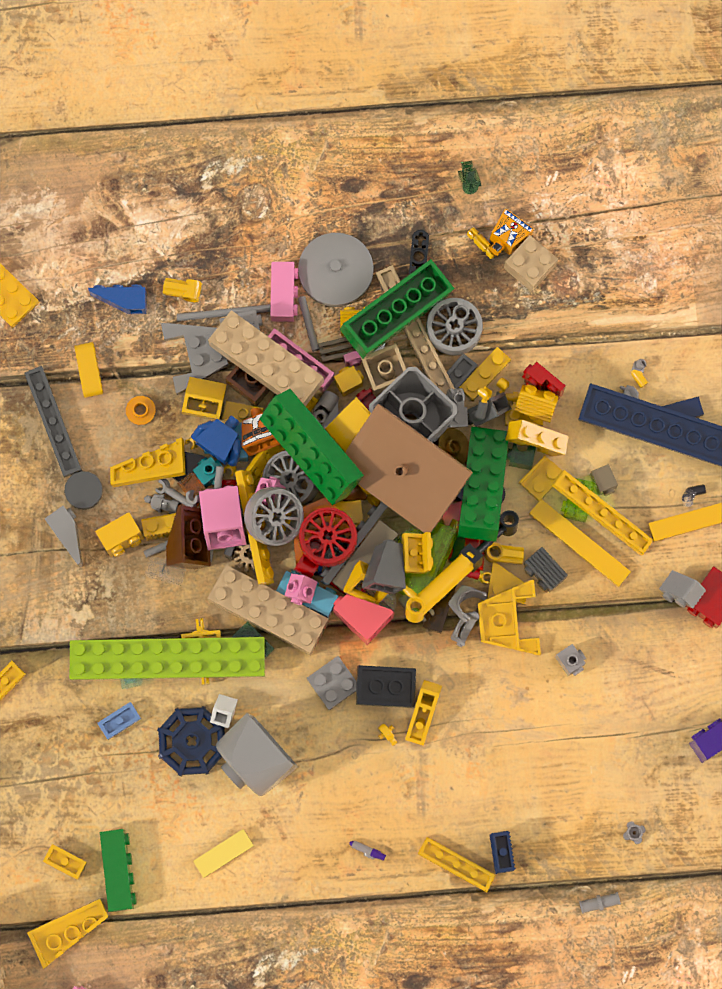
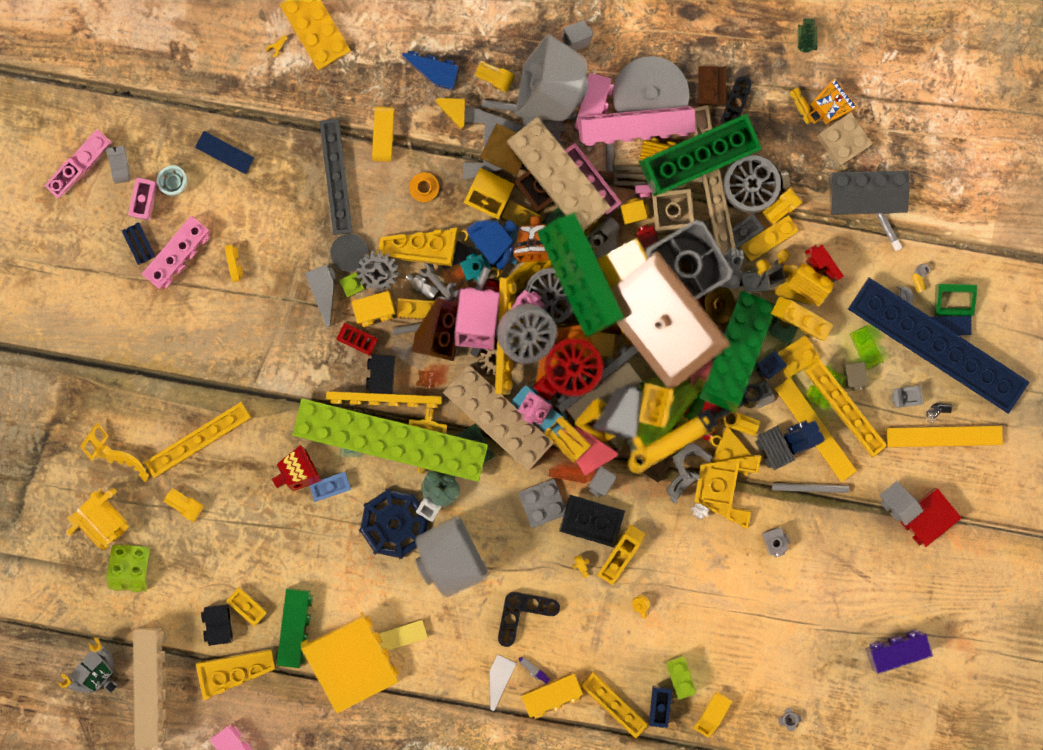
camera: 15 degrees right, 10 degrees up
(40, 887) = (217, 625): none -> black brick
(82, 713) = (296, 470): none -> red torso
(93, 520) = (351, 285): none -> lime plate
(107, 500) = (385, 272): none -> light grey gear
(126, 575) = (371, 346): none -> red slope
(143, 597) = (381, 374): none -> black brick
(144, 622) = (392, 399): none -> yellow plate
(150, 329) = (453, 109): none -> yellow slope
(182, 889) = (350, 663): none -> yellow panel
(188, 591) = (426, 379): none -> clear orange wheel
(204, 357) = (499, 153): none -> pearl gold slope
(221, 688) = (447, 482): none -> sand green plate
(238, 276) = (552, 81): none -> light grey piece
(250, 232) = (577, 35): none -> light grey brick
(328, 297) = (636, 125): none -> bright pink brick
(334, 865) = (499, 677): none -> white sticker
(339, 790) = (522, 606): none -> black beam
(349, 614) = (577, 449): none -> yellow piece
(350, 649) = (567, 476): none -> clear orange tile
(385, 644) = (601, 482): none -> light grey brick
(391, 246) = (711, 85): none -> reddish brown plate
(392, 870) = (552, 695): none -> yellow brick
(456, 757) = (641, 605): none -> yellow piece
(485, 314) = (785, 179): none -> dark tan tile
(489, 649) = (700, 511): none -> white plate
(491, 337) = (786, 203): none -> yellow piece
(514, 818) = (680, 677): none -> lime brick
(519, 492) = (770, 365): none -> dark blue bracket
(524, 523) = (768, 396): none -> light grey slope
(556, 847) = (712, 715): none -> yellow slope
(568, 305) = (869, 192): none -> dark grey slope
(570, 550) = (803, 437): none -> dark blue brick
(590, 600) = (810, 487): none -> light grey bar
(592, 332) = (889, 231): none -> light grey bar
(606, 452) = (866, 347): none -> clear neon green slope
(659, 487) = (907, 396): none -> light grey bracket
(675, 374) = (955, 288): none -> green tile

